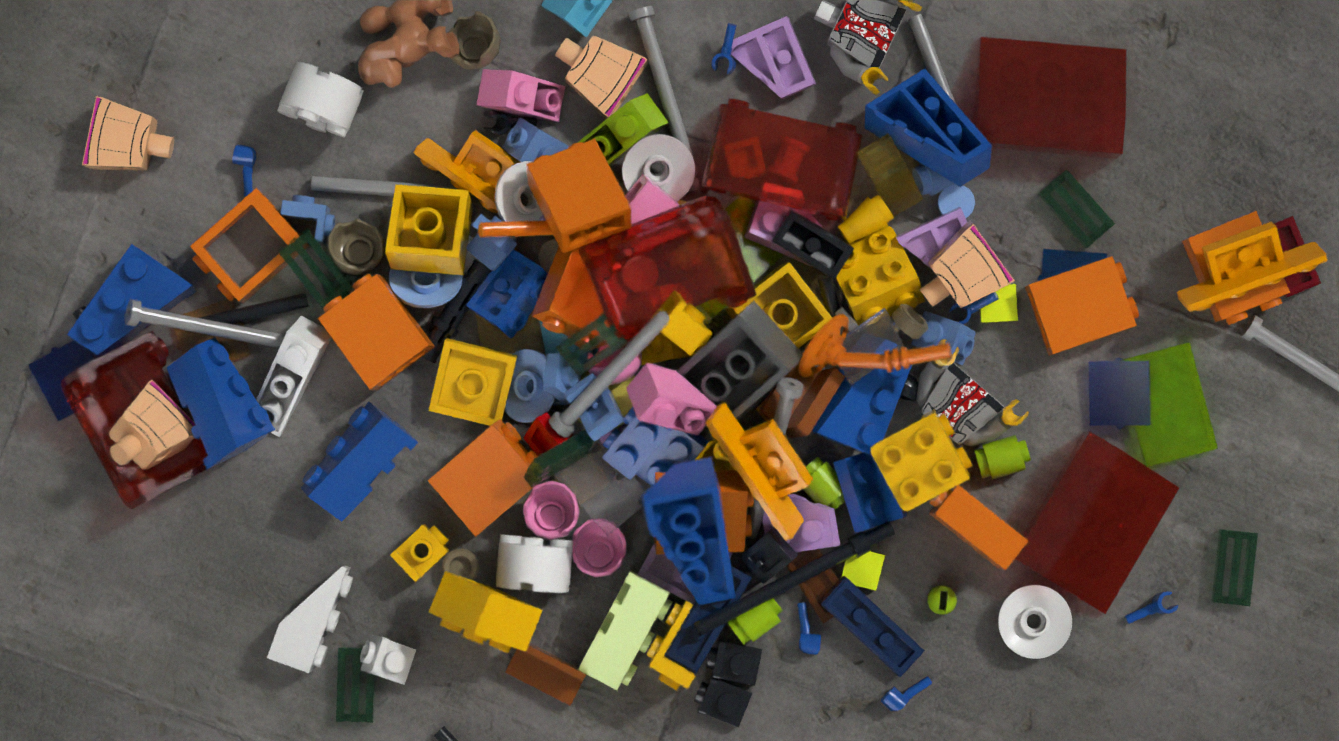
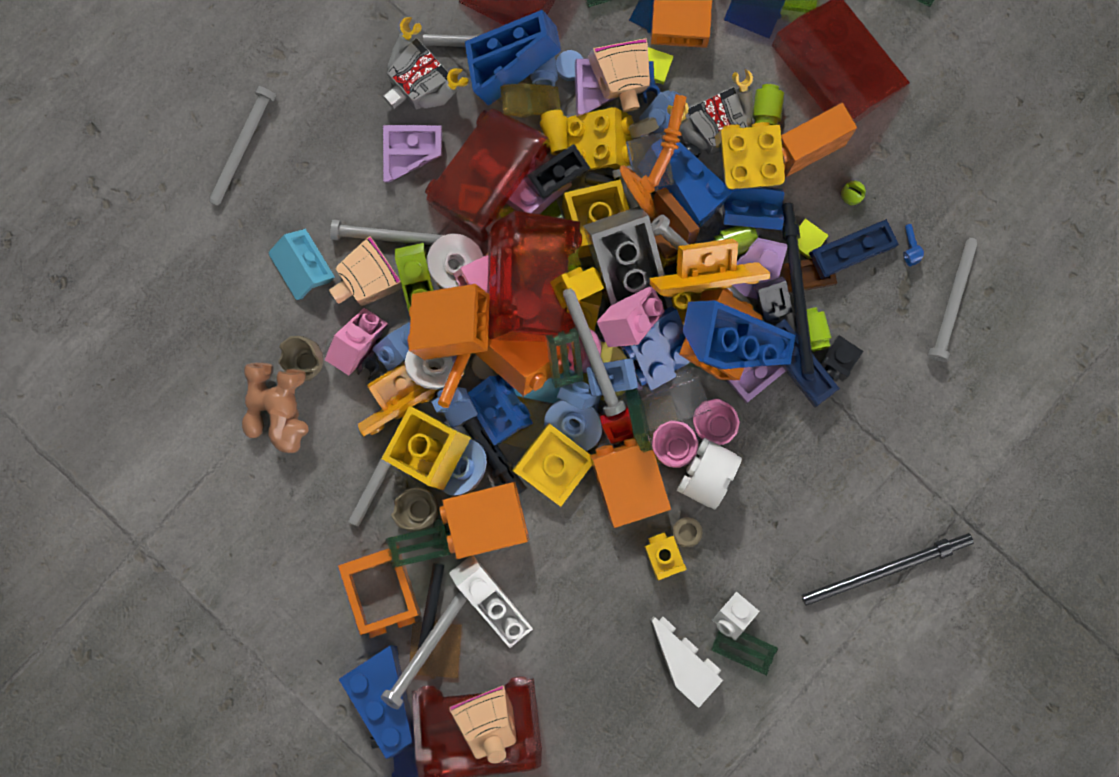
camera: 65 degrees left, 5 degrees down
(123, 138) = (256, 653): light nougat torso -> none
(219, 402) = (487, 661): blue wedge -> none
(245, 157) = (312, 565): blue hand -> none
(304, 209) = (369, 537): medium blue bracket -> none
(320, 99) = (293, 488): white brick -> none
(356, 460) = (576, 575): blue wedge -> none
(484, 613) = (733, 525): yellow brick -> none
(546, 673) = (792, 501): dark orange panel -> none
(625, 631) = (786, 428): yellowish green wedge -> none
(670, 672) = (810, 405): yellow bracket -> none
(722, 701) = (865, 379): black bracket -> none
(726, 50) = (391, 181): blue hand -> none
(808, 642) = (845, 301): blue hand -> none
(1048, 635) = (903, 120): white dish -> none
(1152, 608) = (918, 44): blue hand -> none

